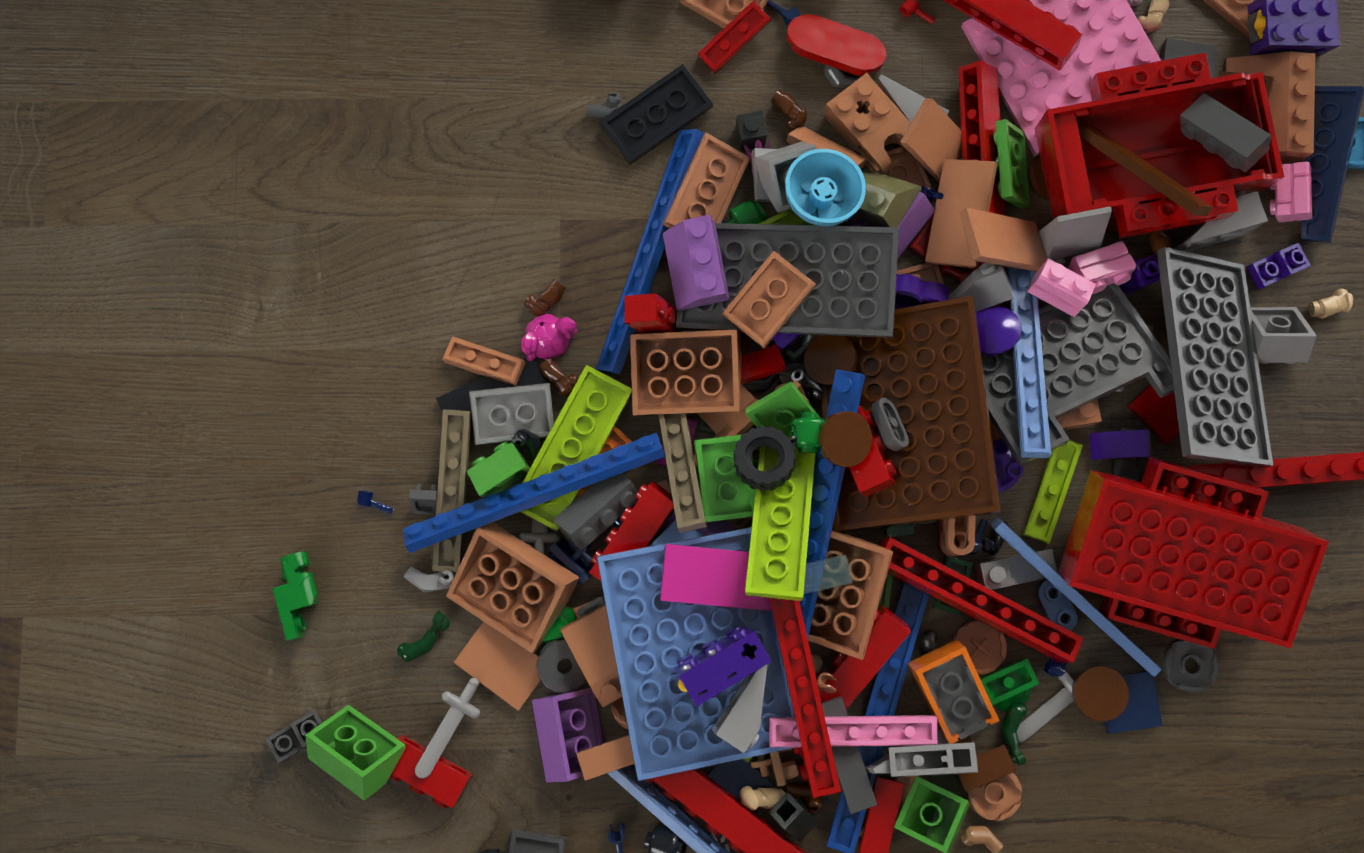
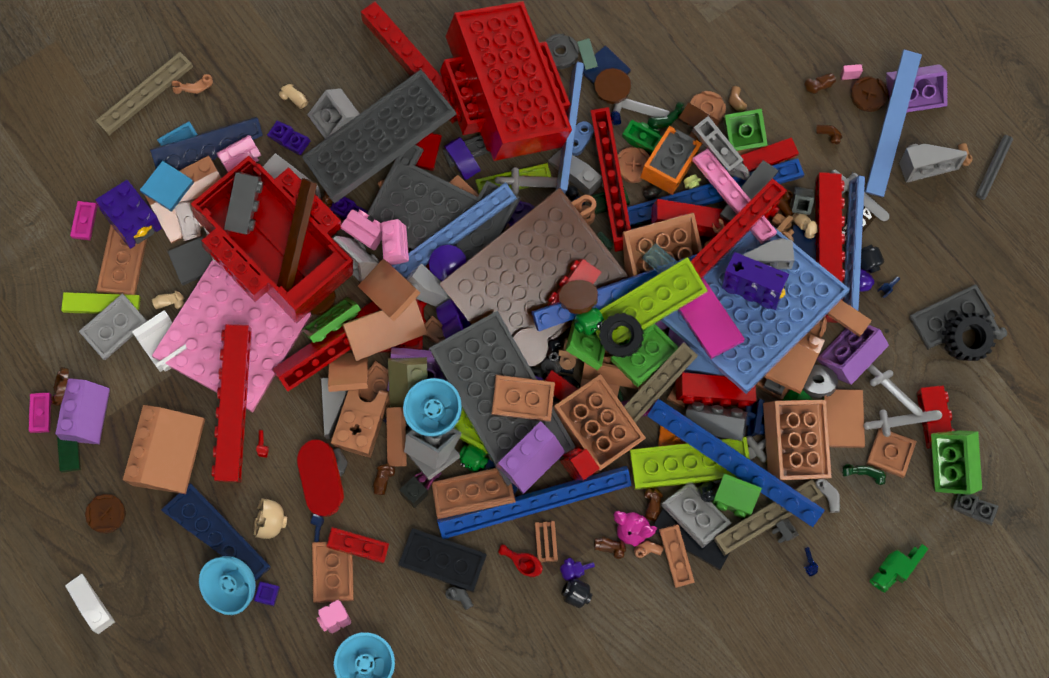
camera: 125 degrees left, 10 degrees down
(422, 688) = (891, 453): none -> nougat tile
(488, 747) = (883, 378): none -> light grey sword
(517, 331) = (646, 548): none -> nougat arm
(520, 227) = (576, 593): none -> black head
(549, 241) = (573, 569): none -> dark purple piece
(594, 196) = (524, 562): none -> red piece
(603, 226) = (546, 524): none -> nougat tile
(643, 818) = (866, 281): none -> dark purple piece
(889, 424) = (549, 281): dark grey plate -> none
(908, 700) = (692, 182): none -> yellowish green plate
(931, 193) = (382, 358): clear blue hand -> none
(1048, 490) = (526, 181): none -> light grey sword
(1164, 694) = (587, 54): none -> sand green sticker
(1302, 78) = (166, 186): none -> dark azure tile

